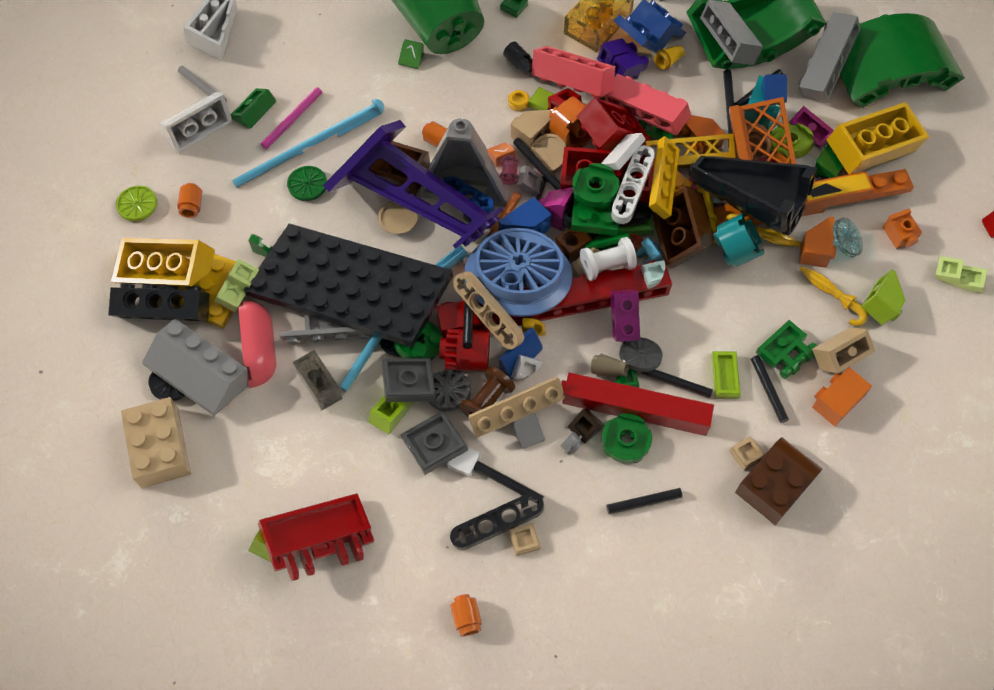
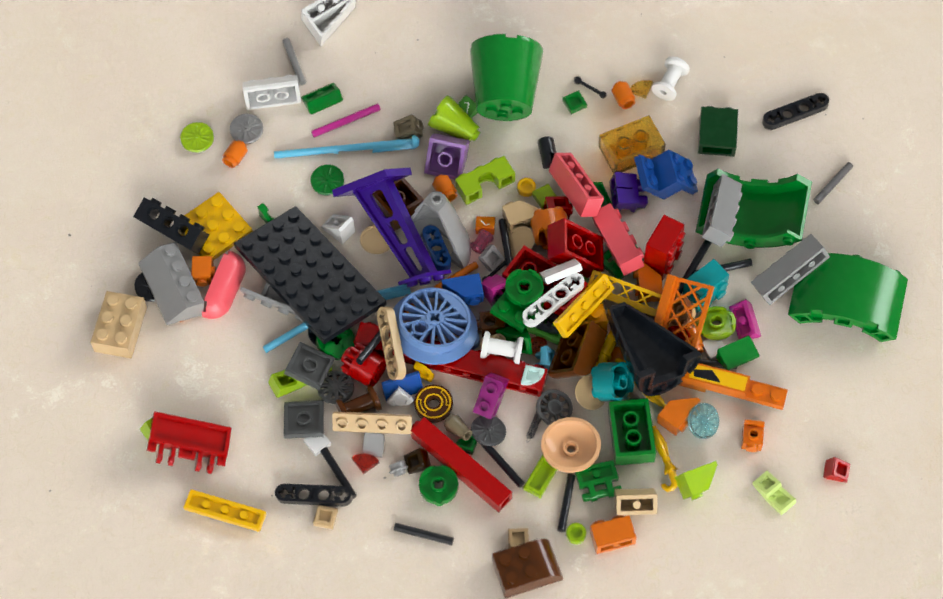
camera: 30 degrees right, 0 degrees up
(162, 261) = (188, 195): yellow slope -> none
(187, 169) = (246, 128): none -> light grey wheel
(223, 335) = (203, 270): none -> orange brick
(233, 289) = (236, 232): yellowish green slope -> none
(317, 380) = (248, 335): clear smoke brick -> none
(350, 222) = (339, 227): none -> white slope
(362, 95) = (407, 127): none -> dark tan bracket
(404, 593) = (225, 510): none -> yellow plate
(408, 68) = (454, 120): none -> lime cone
(420, 104) = (446, 155): none -> medium lavender slope
(466, 615) = (255, 545): orange brick -> none
(482, 97) = (497, 171): none -> lime arch
(530, 455) = (365, 462): none -> clear red tile
(564, 342) = (429, 393): none -> reddish brown tile
(668, 57) = (668, 206): yellow cone -> none
(678, 315) = (535, 422): none -> black piece
(692, 297) = (554, 406): none -> dark grey wheel
(702, 83) = (665, 246): none -> red brick
(716, 266) = (584, 395): none -> tan piece
(741, 314) = (571, 434): none -> light nougat dish
(774, 87) = (714, 275): blue slope -> none
(789, 281) = (631, 432): none -> green brick
(801, 415) = (575, 533): none -> lime tile
(877, 138) = (780, 354): yellow brick -> none

